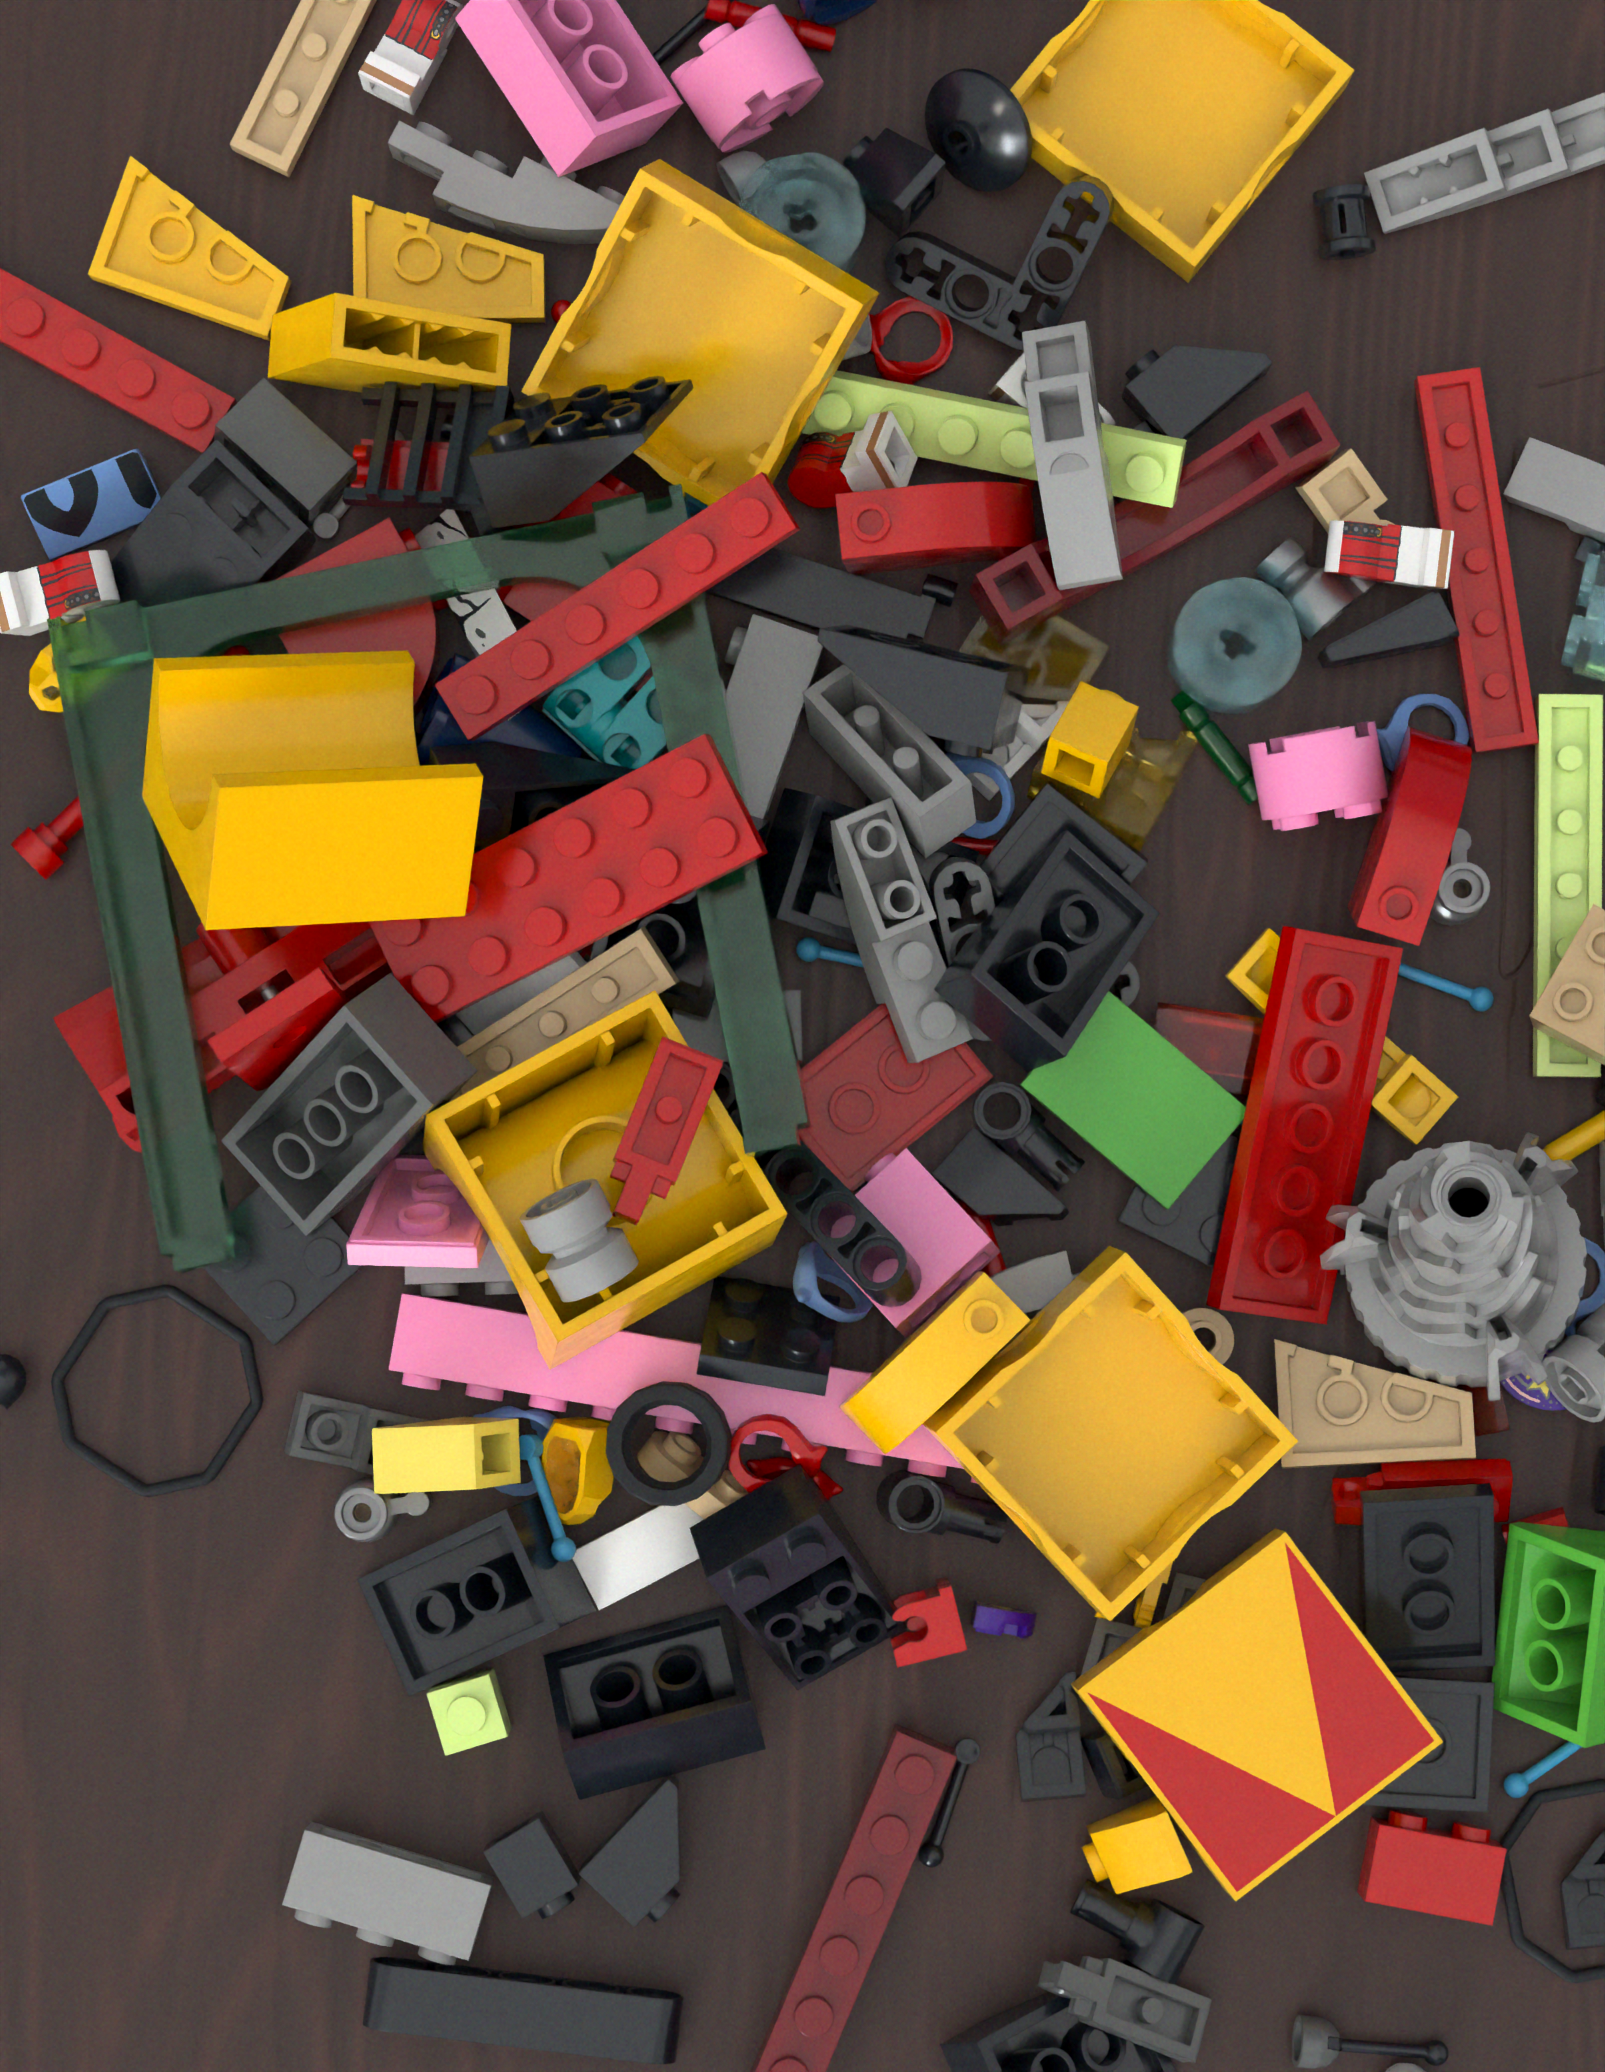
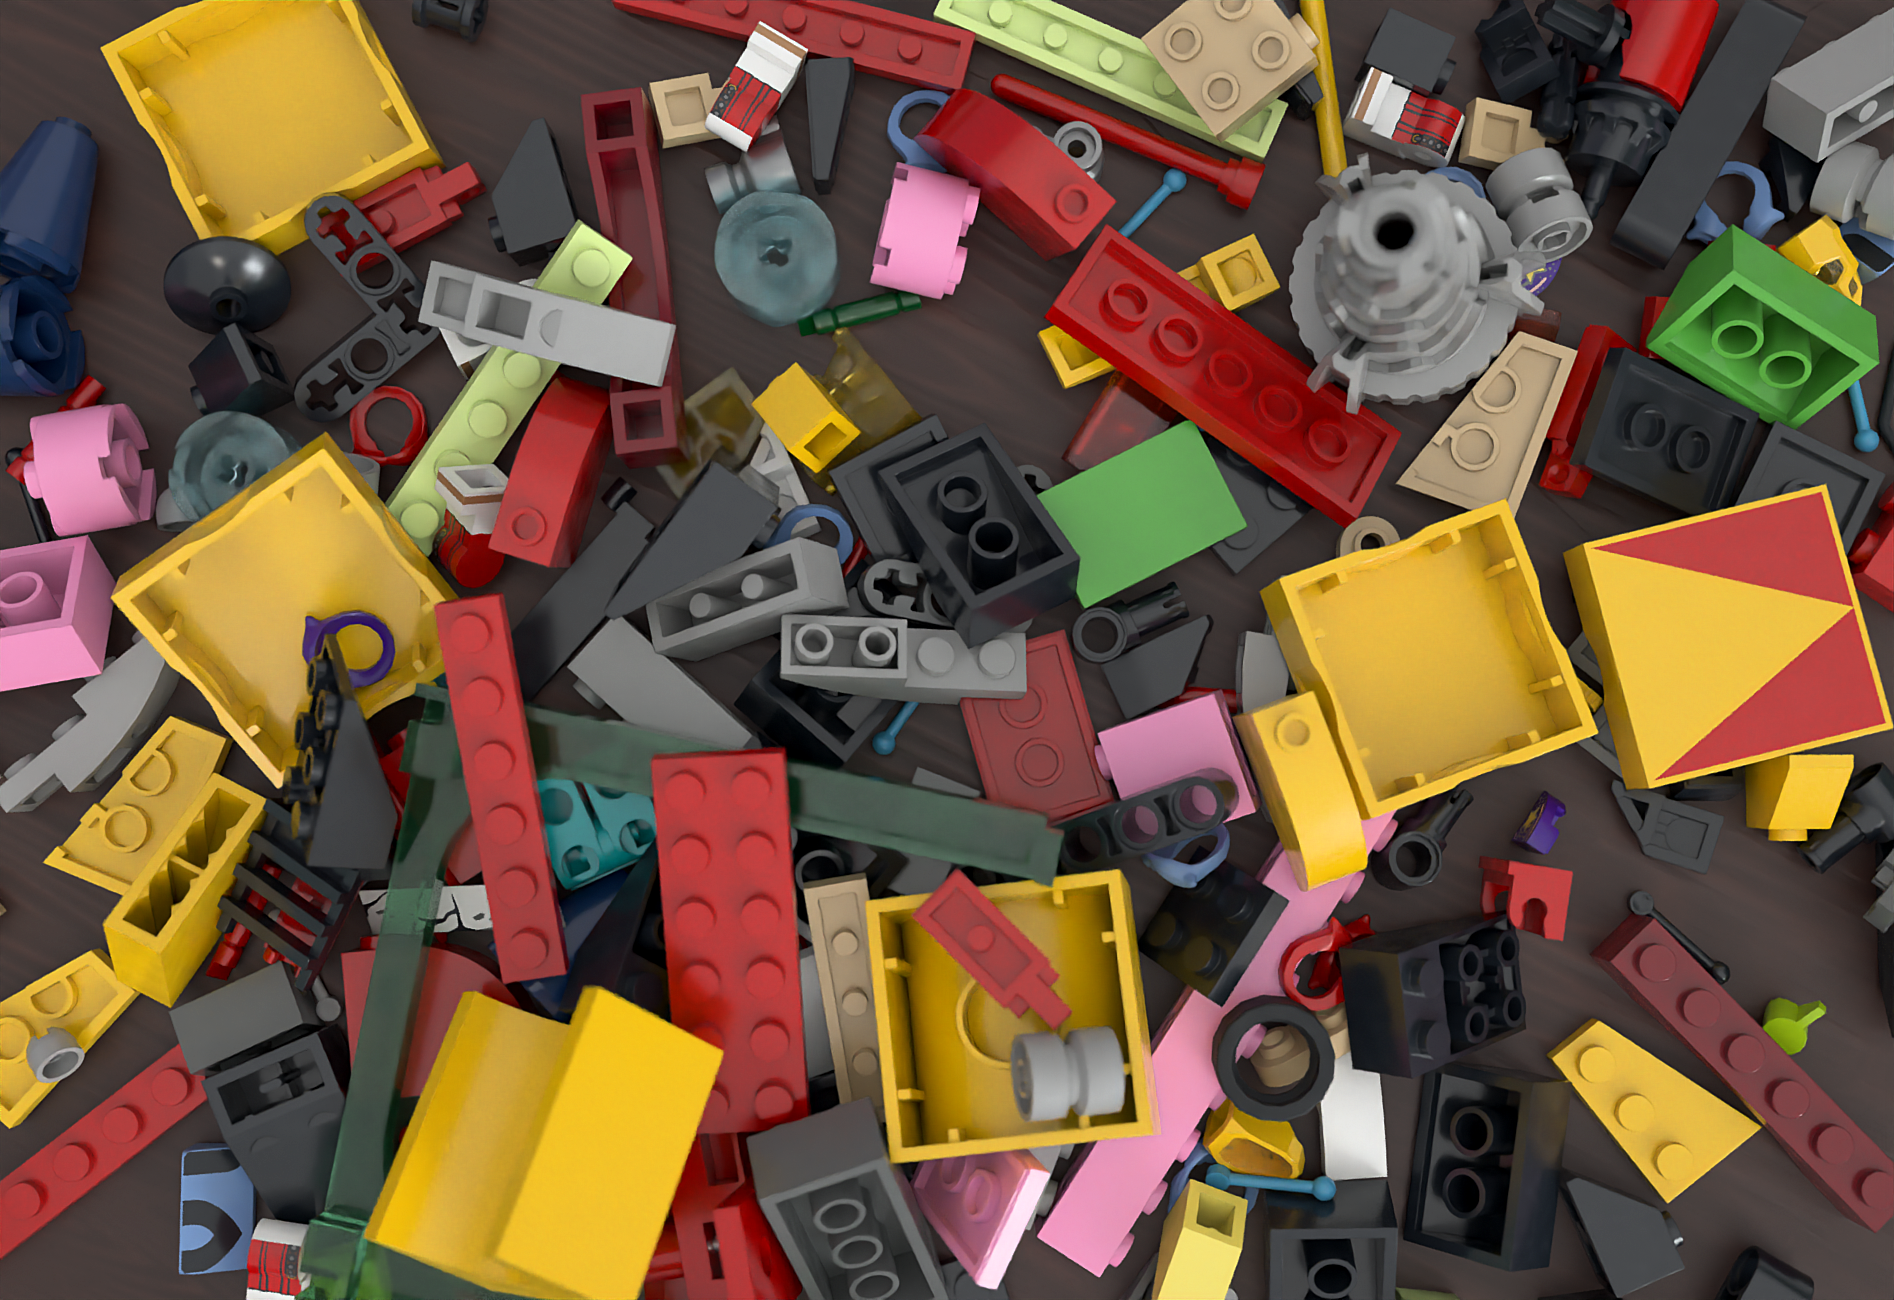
camera: 60 degrees left, 0 degrees up
(178, 288) = (54, 1055): none -> light grey hinge
(342, 407) = (231, 948): none -> red wheel
(686, 367) = (315, 635): none -> dark purple piece
(771, 1841) = (1649, 1109): none -> yellow wing
(910, 1940) = (1789, 1022): none -> lime piece
(1131, 269) = (408, 209): none -> red hinge
(1505, 1057) = (1234, 179): none -> red piece

